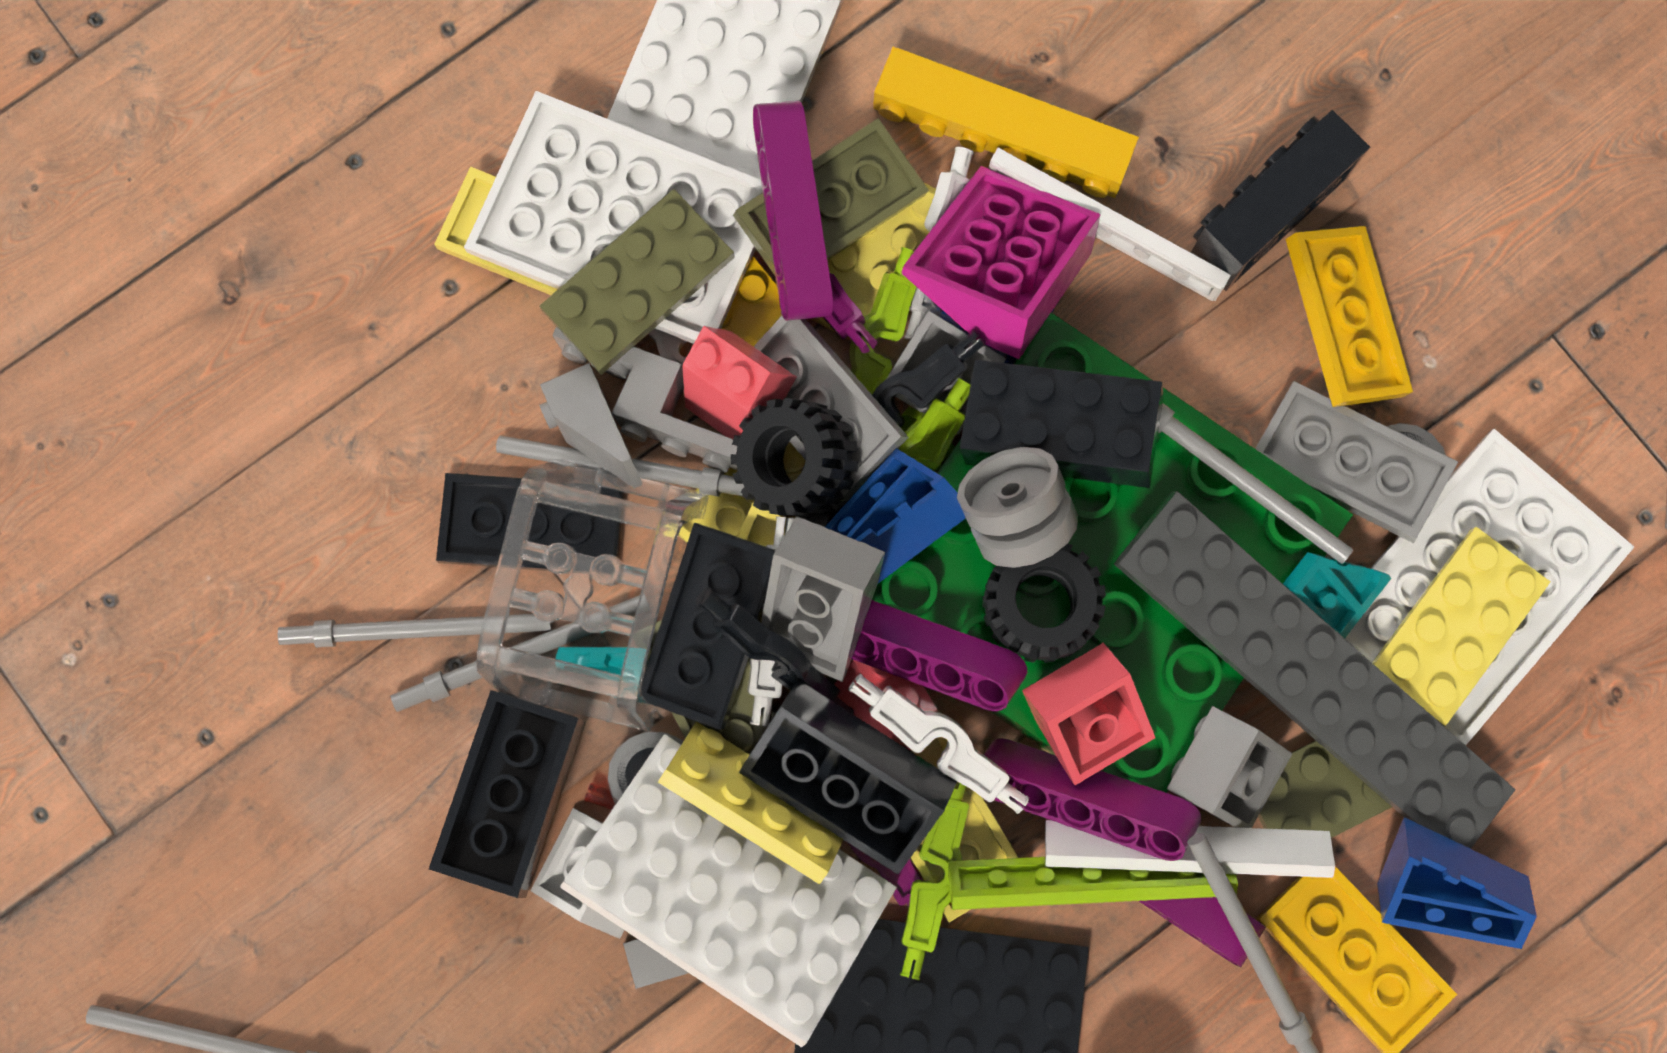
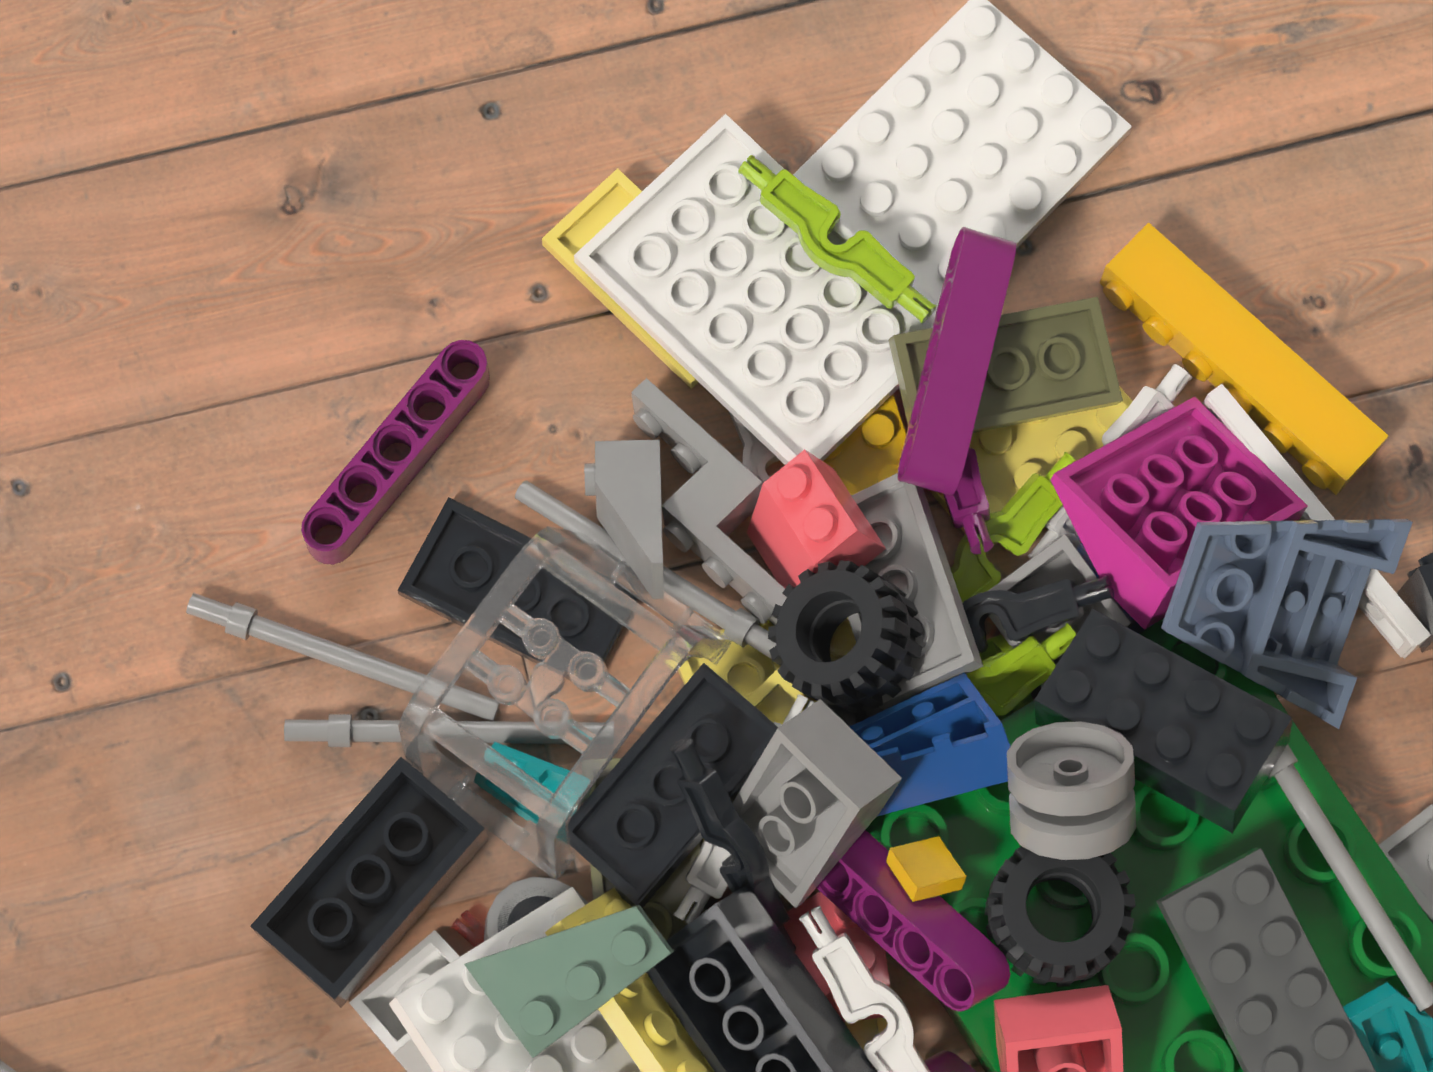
camera: 20 degrees right, 5 degrees down
(386, 433) = (392, 477): none -> magenta beam
(637, 281) = (751, 370): olive plate -> none
(684, 160) = (857, 258): none -> lime piece
(690, 808) = (569, 975): none -> sand green wing
(929, 611) = (925, 869): none -> yellow tile
(1111, 294) = (1282, 600): none -> sand blue wedge

